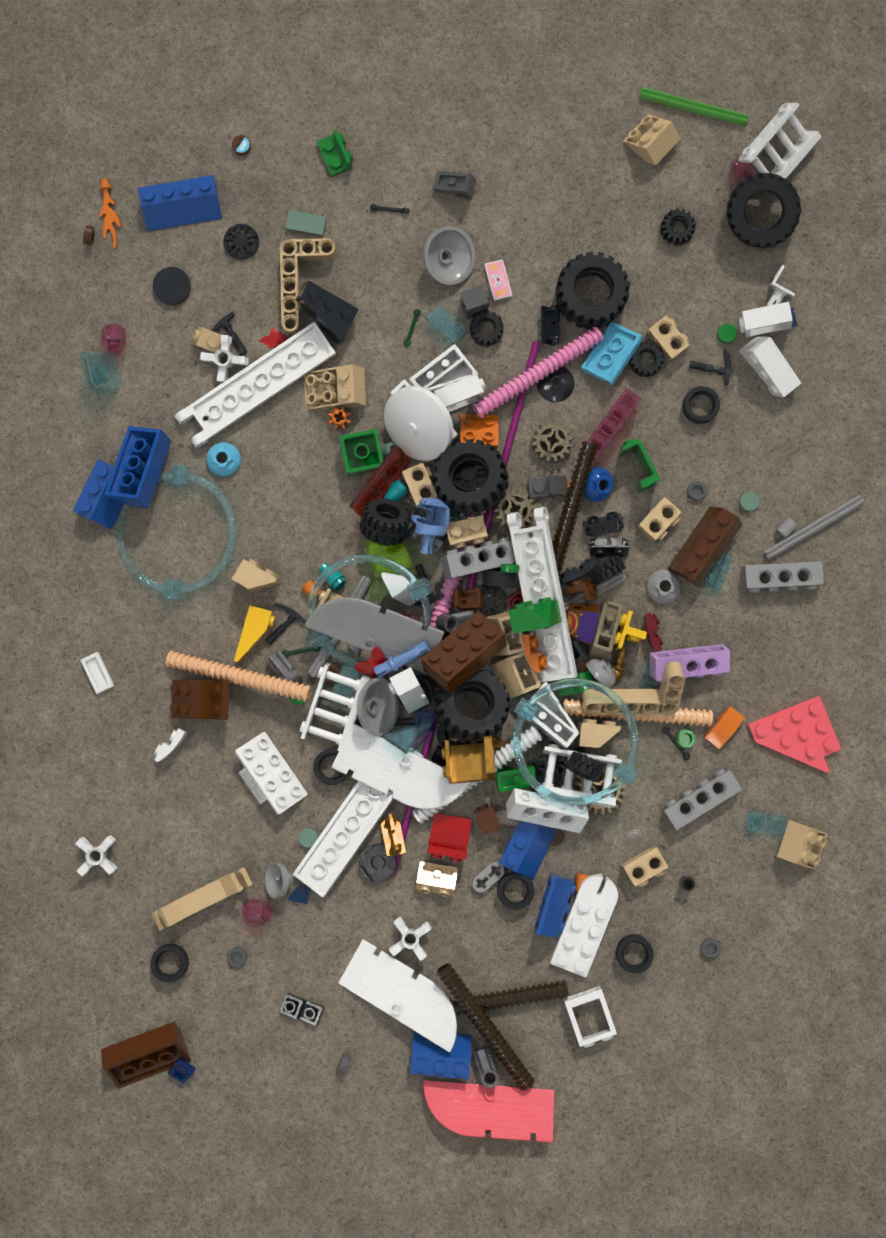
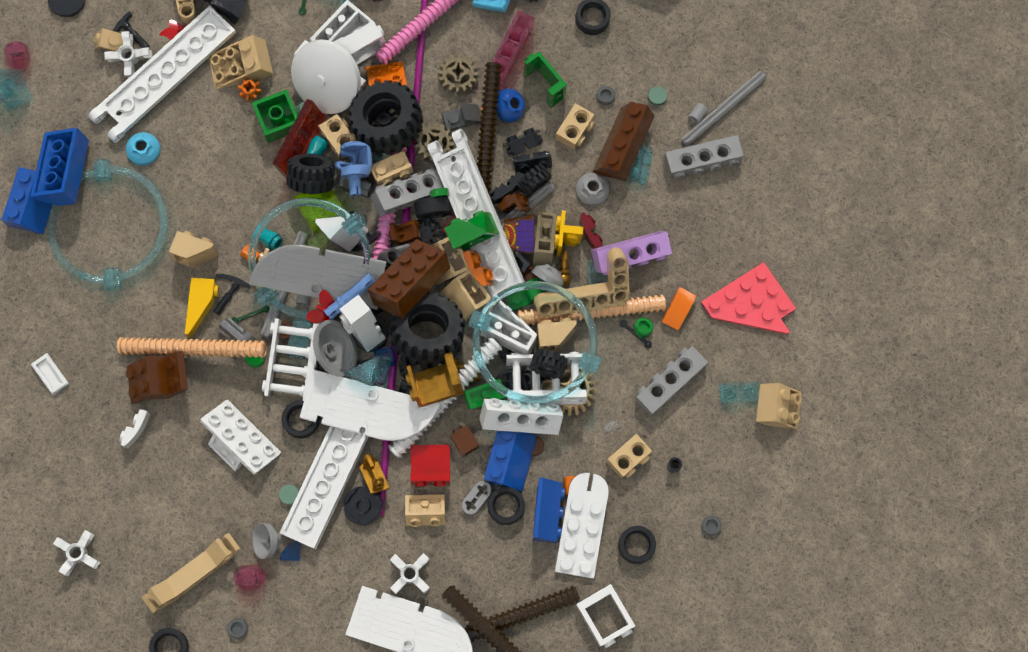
camera: 15 degrees left, 10 degrees down
(559, 392) = (453, 30): black dish -> none

